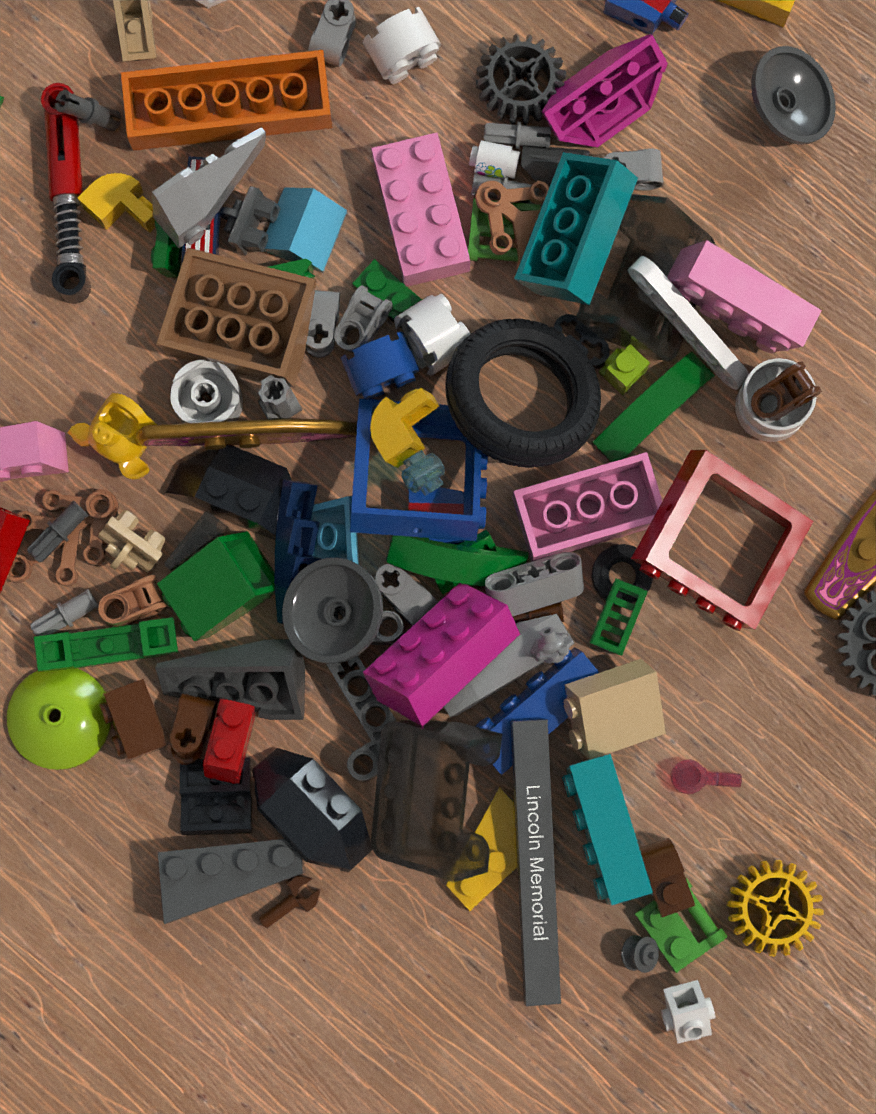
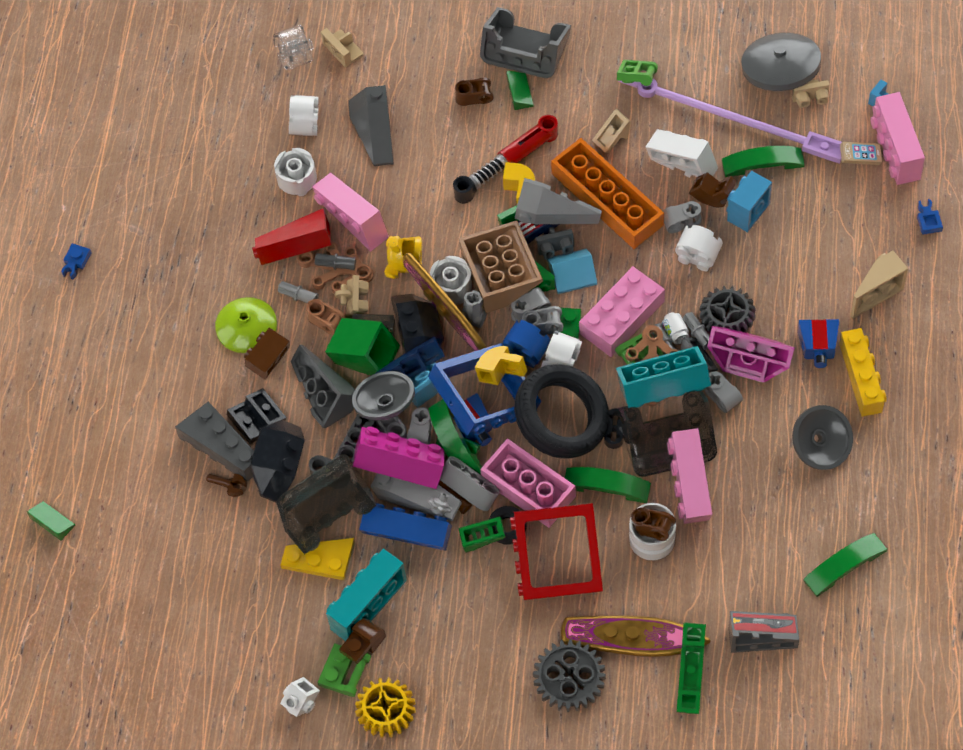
camera: 60 degrees right, 20 degrees down
(88, 111) = (552, 138): dark grey pin -> none
(105, 645) = (293, 319): green slope -> none
(191, 723) = (283, 380): reddish brown piece -> none
(229, 741) = (286, 399): red brick -> none
(423, 472) = (483, 390): clear light blue gear -> none
(535, 862) = (325, 575): dark grey tile -> none
(614, 709) = (430, 557): tan brick -> none
(624, 368) = (615, 451): lime brick -> none
(640, 953) = (314, 657): dark grey wheel -> none
(688, 322) = (659, 457): white beam -> none
(691, 777) = (425, 624): clear pink plate -> none

